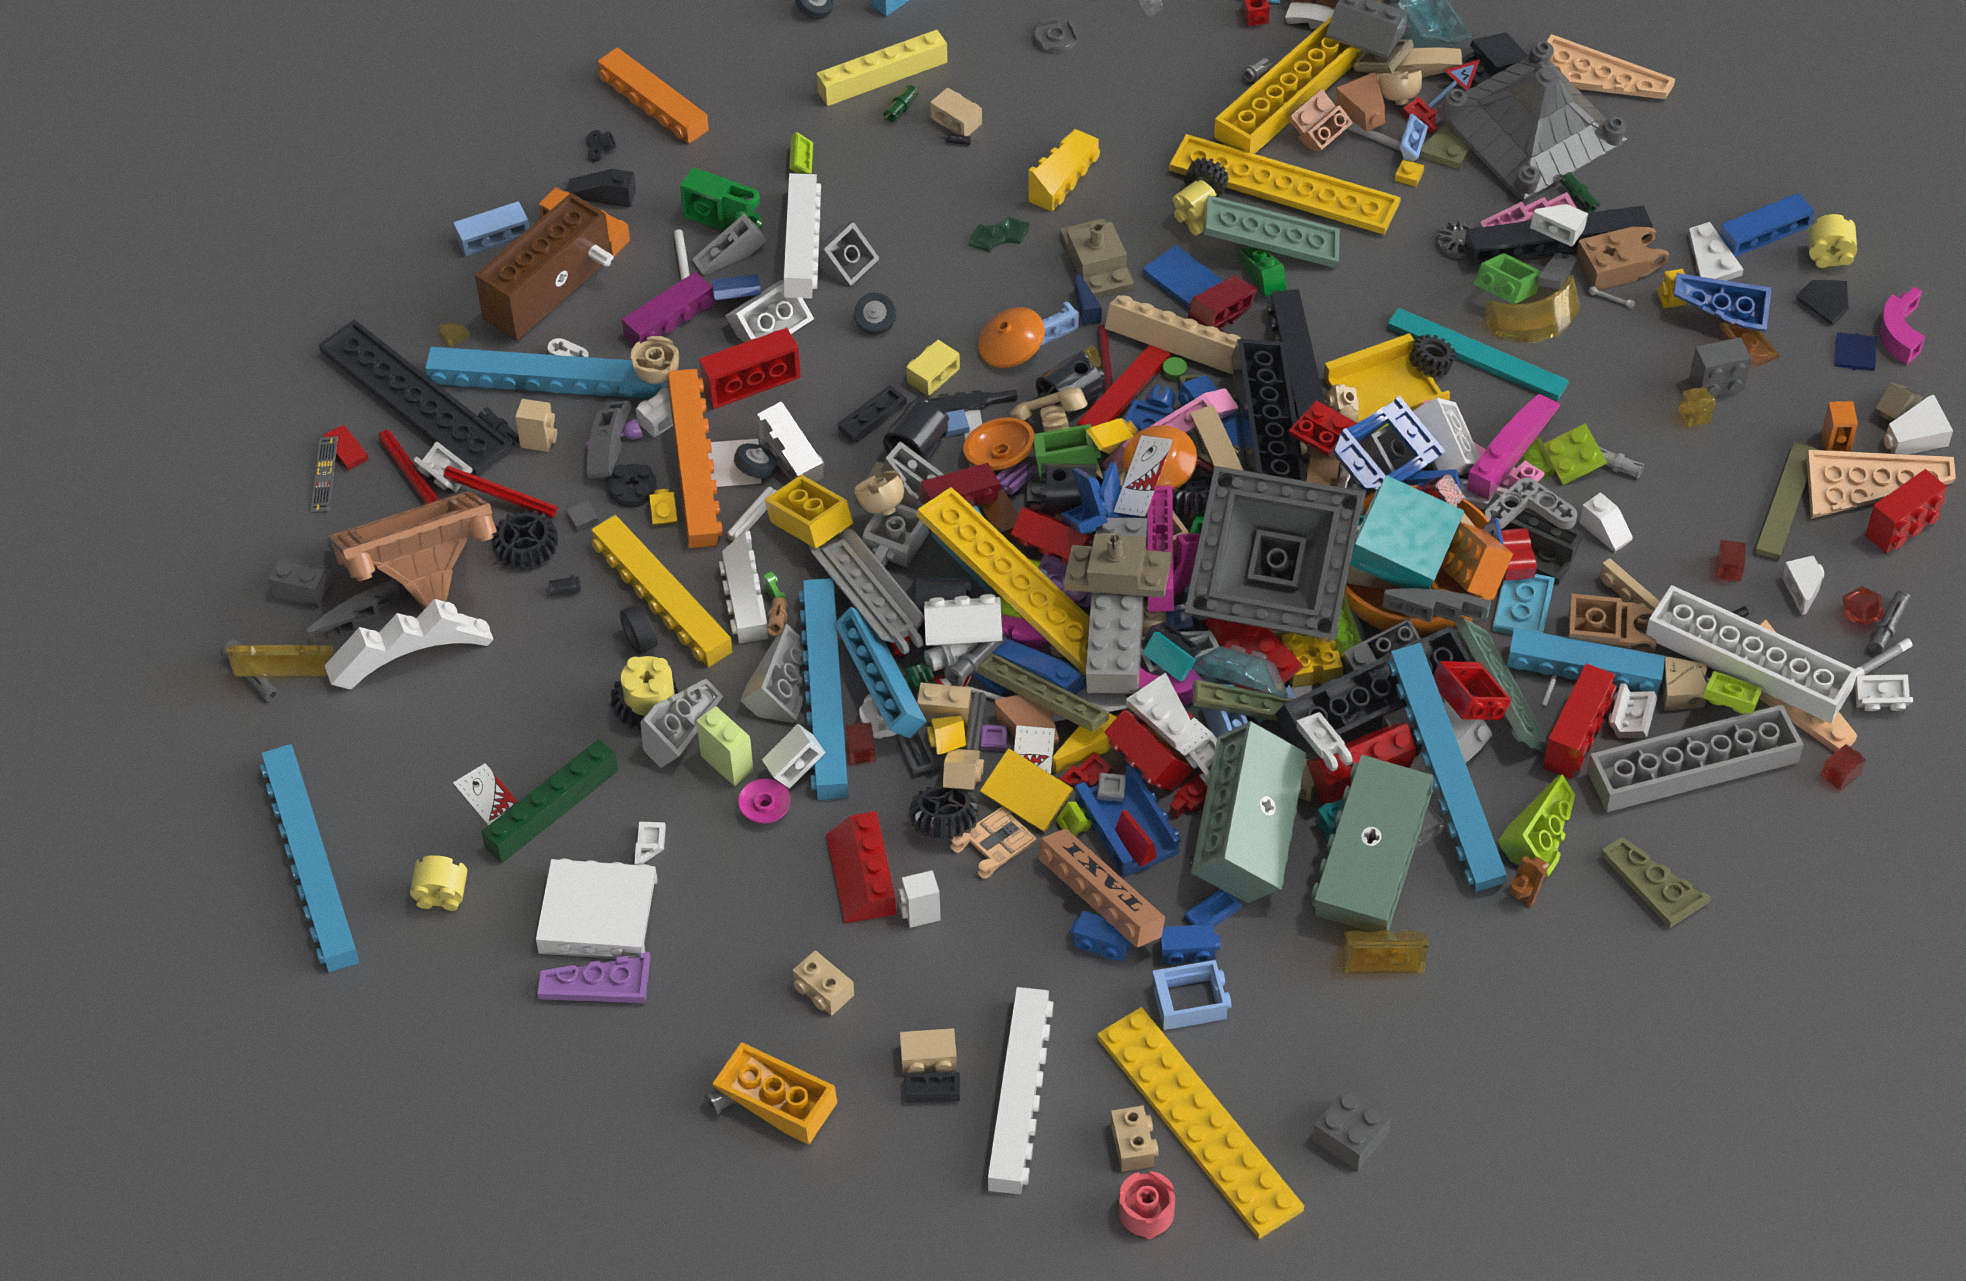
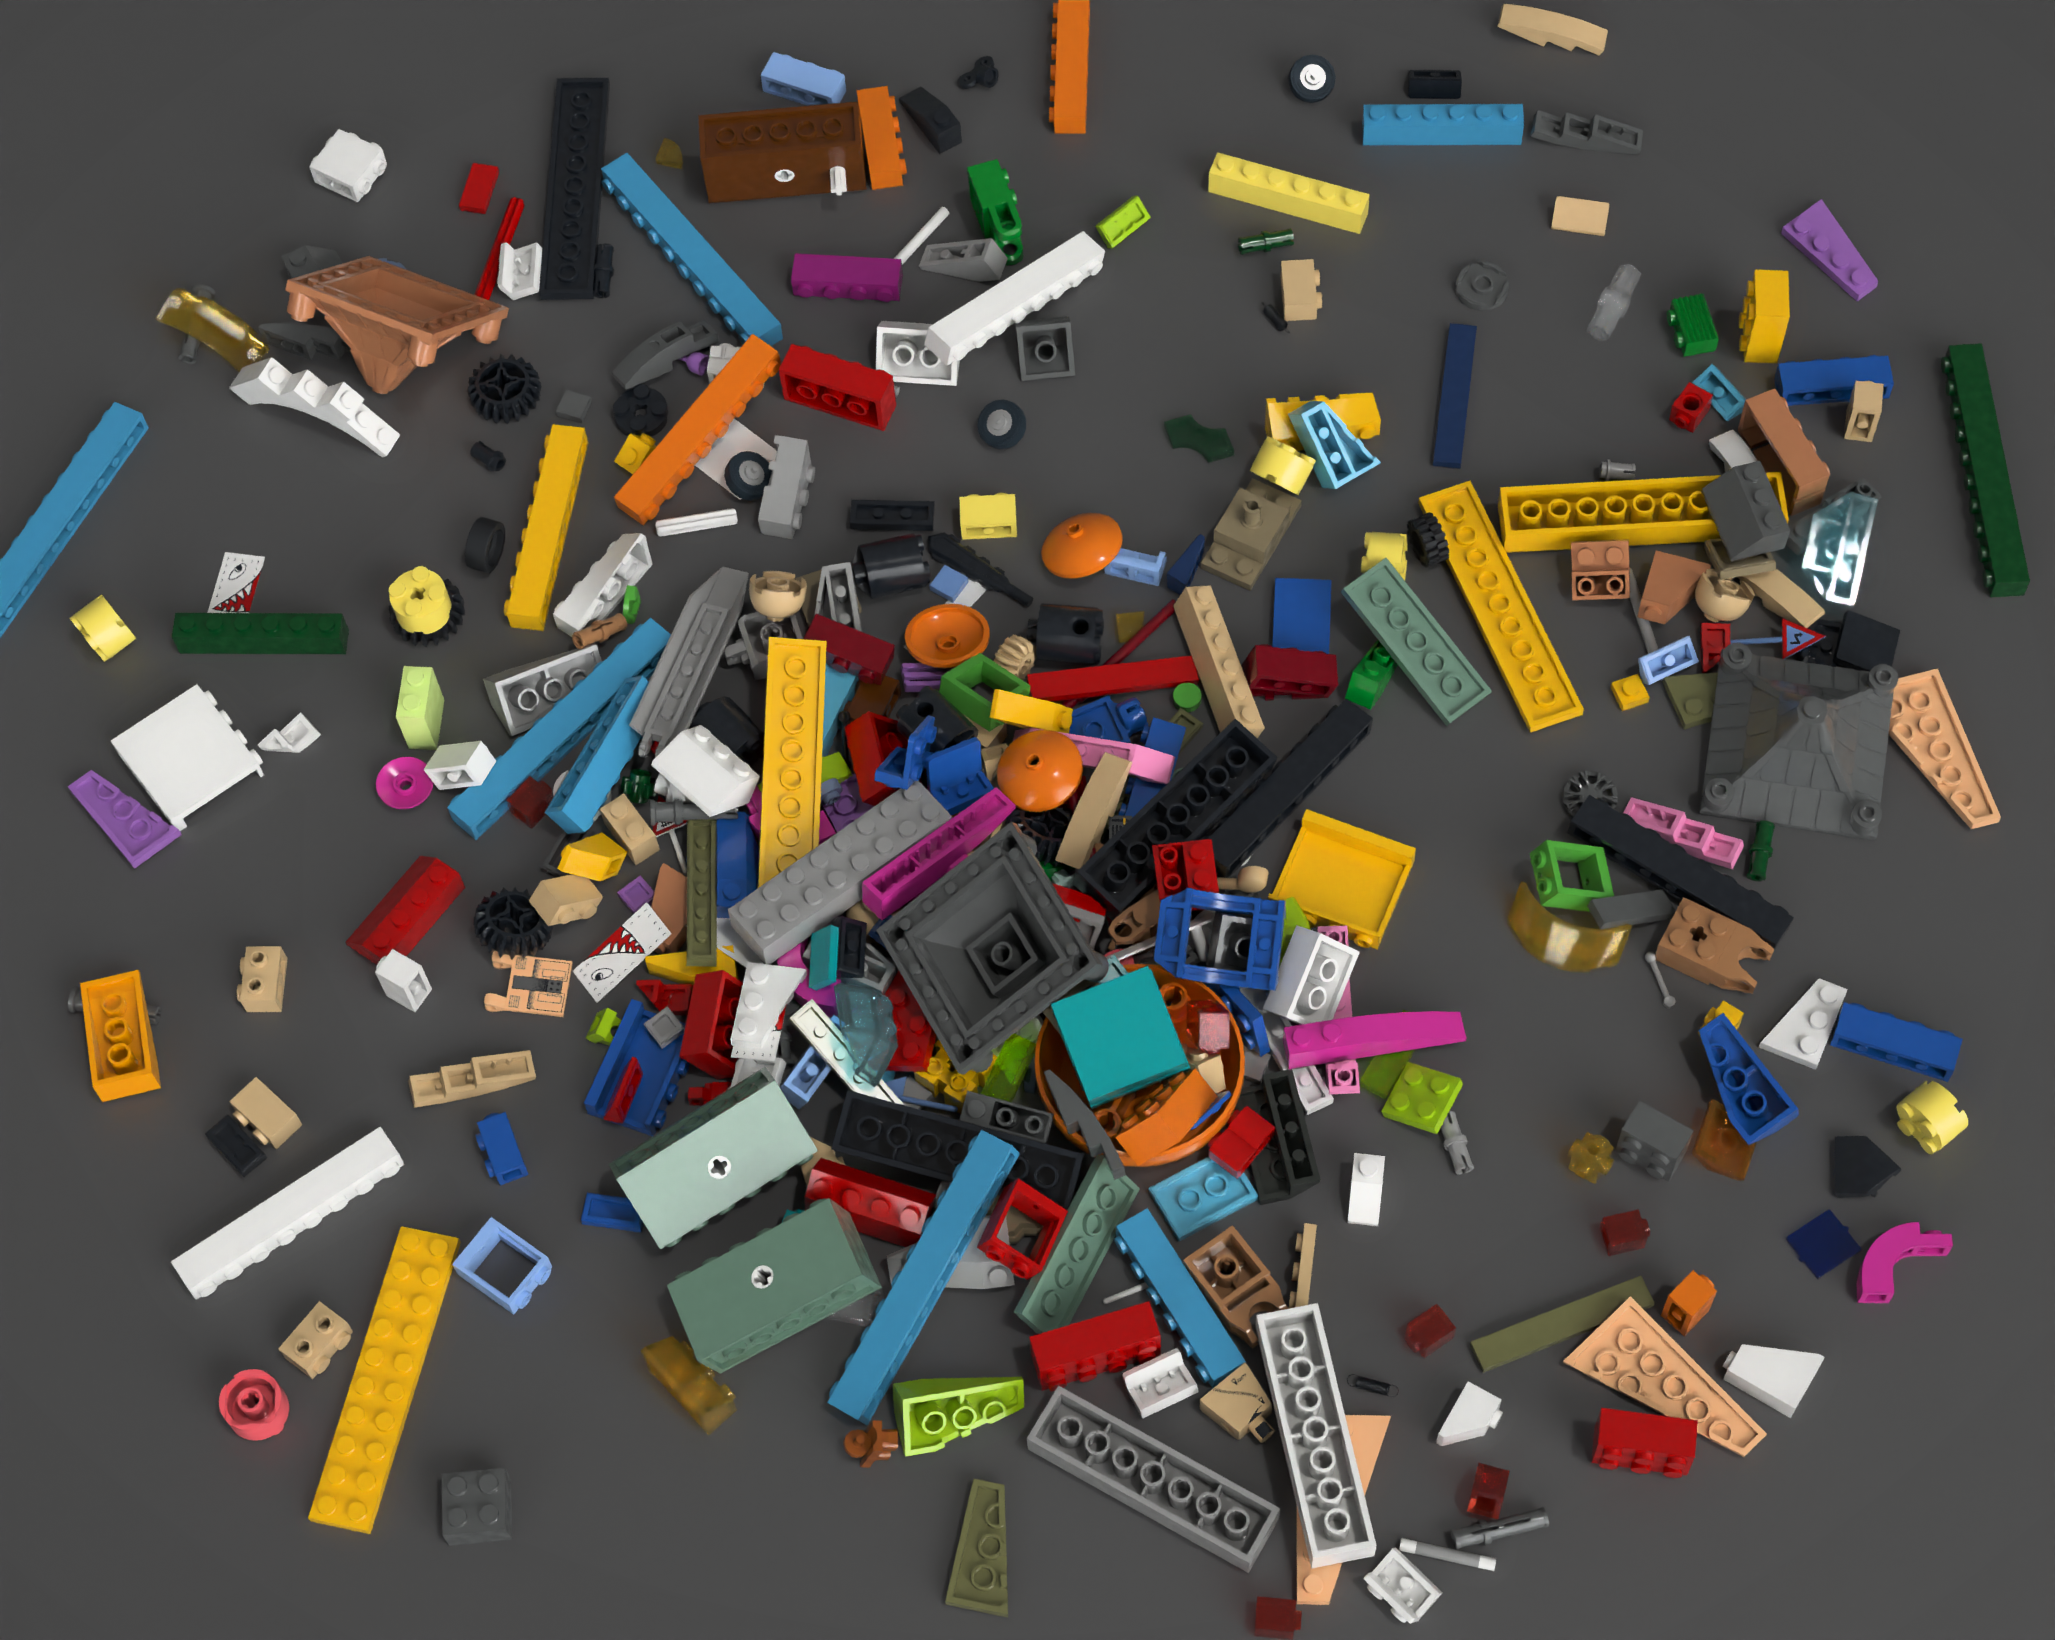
camera: 50 degrees right, 10 degrees up
(238, 498) = (348, 165): none -> white brick
(324, 474) = (436, 198): dark grey sticker -> none
(500, 491) = (534, 330): red axle -> none
(535, 425) = (620, 293): tan brick -> none
(569, 348) = (734, 249): white beam -> none
(654, 359) = (757, 313): tan cylinder -> none
(673, 723) = (416, 646): light grey wedge -> none
(736, 286) = (921, 301): blue tile -> none
(808, 511) = (724, 559): yellow brick -> none
(975, 721) = (639, 867): dark grey axle -> none
(1026, 790) = (597, 966): yellow tile -> none
(1030, 919) = (472, 1079): none -> tan slope
(1070, 398) = (1036, 645): tan piece -> none
(1076, 203) = (1282, 465): none -> light yellow brick
(1090, 171) = (1331, 444): none -> medium azure wedge
(1101, 888) = (538, 1107): nougat brick -> none
(1116, 101) = (1455, 396): none -> dark blue tile
(1118, 567) = (860, 841): dark tan brick -> none
(1143, 475) = (996, 774): white sticker -> none
(1188, 944) = (555, 1221): blue brick -> none
(1324, 740) = (835, 1153): white hinge -> none
(1341, 396) = (1266, 850): tan brick -> none
(1432, 355) = (1404, 898): black tyre -> none
(1482, 355) = (1465, 924): teal tile -> none
(1531, 499) = (1310, 1104): light grey beam -> none
(1560, 222) = (1679, 866): white slope -> none
(1732, 692) = (1250, 1454): lime plate -> none
(1759, 428) = (1624, 1232): none -> clear red brick
(1897, 401) = (1792, 1330): dark tan slope -> none

